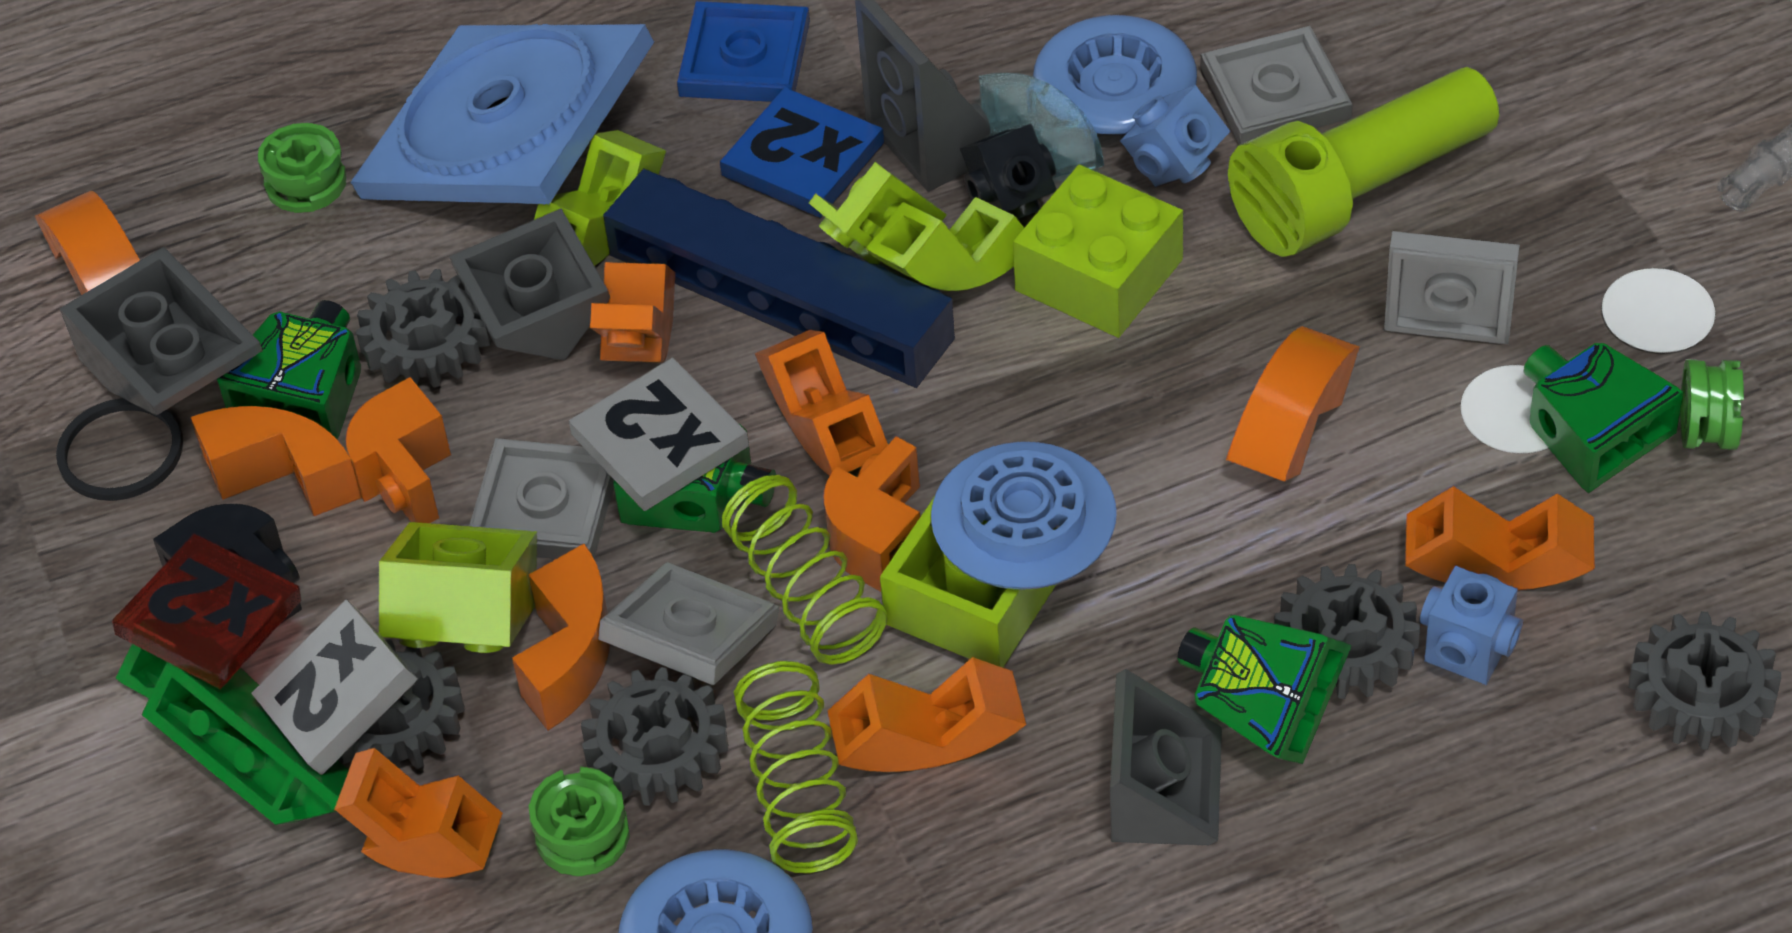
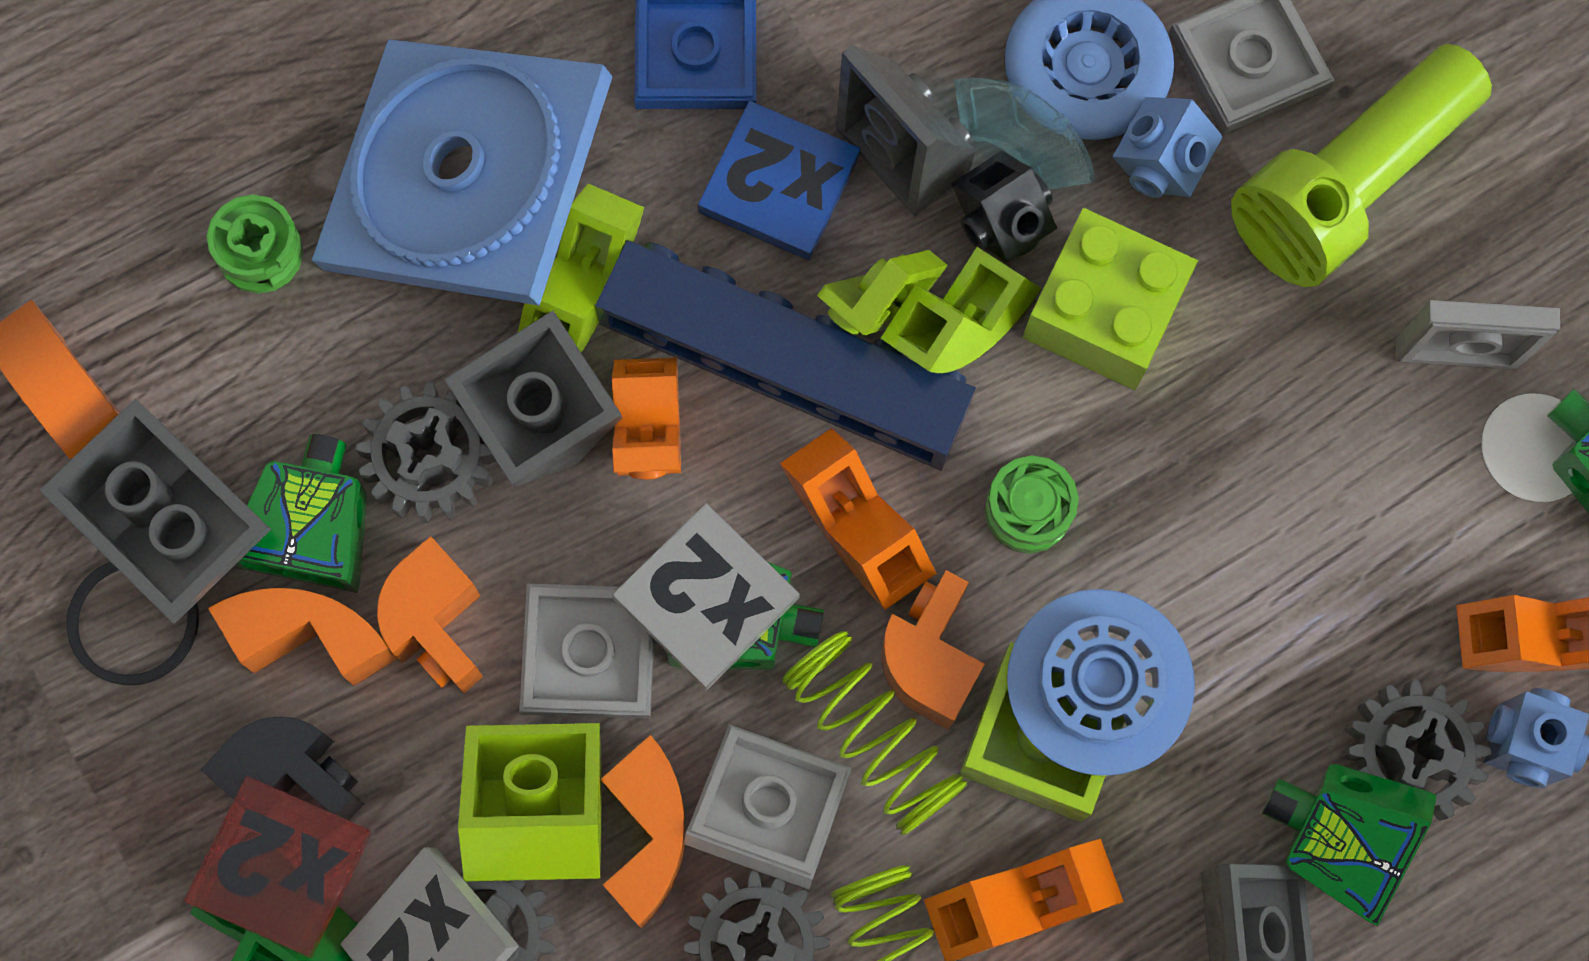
camera: 15 degrees left, 25 degrees up
(994, 406) = (1031, 504): none -> bright green wheel
(1296, 386) = (1332, 481): orange brick -> none

